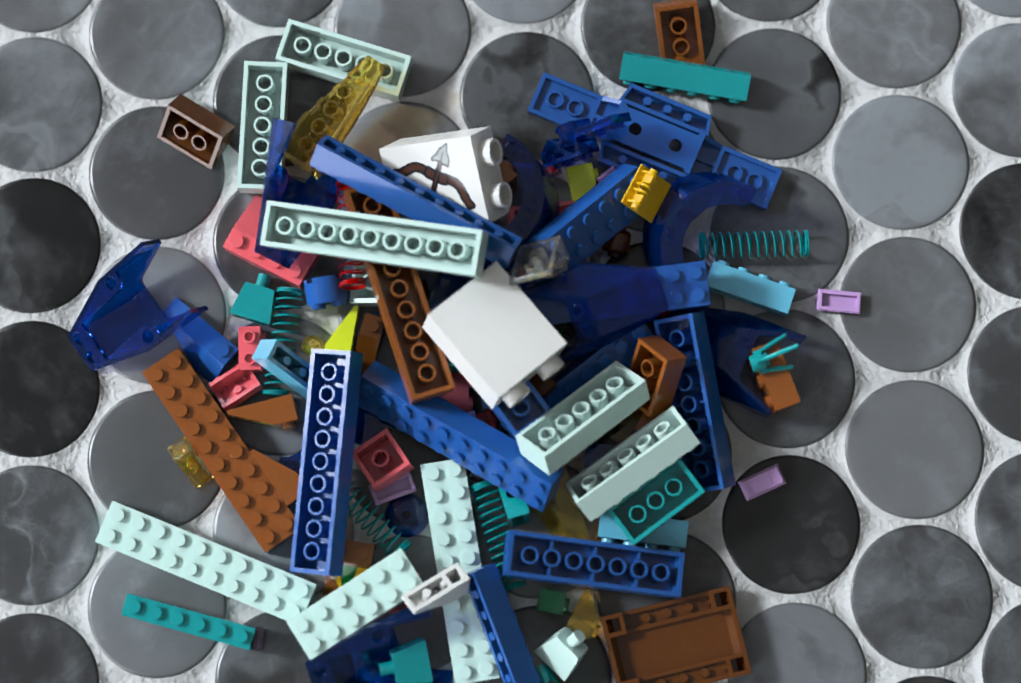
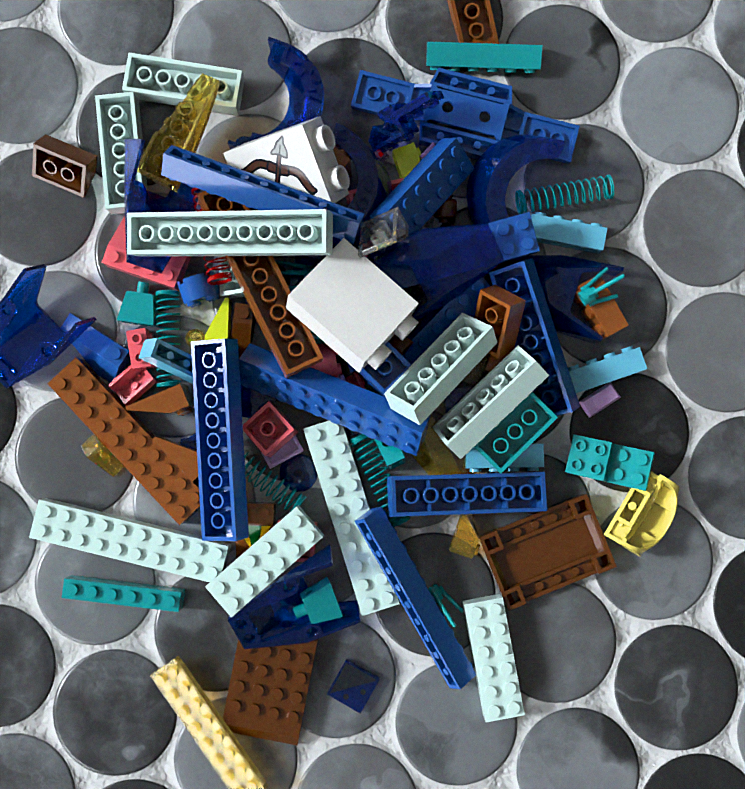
camera: 10 degrees left, 5 degrees up
(259, 639) = (186, 599): clear purple tile -> none
(438, 590) = (334, 539): white slope -> none
(451, 287) = (306, 270): none -> teal plant
(477, 92) = (303, 85): none -> clear blue windscreen
(552, 602) = (435, 530): clear green slope -> none
(563, 651) = (450, 571): light aqua torso -> none
(646, 193) = (466, 160): yellow hinge -> none
(759, 553) = (610, 462): none -> teal piece
(773, 449) = (607, 370): none -> medium azure brick
(790, 617) = (645, 515): none -> light yellow piece
(839, 301) = (644, 233): lavender tile -> none

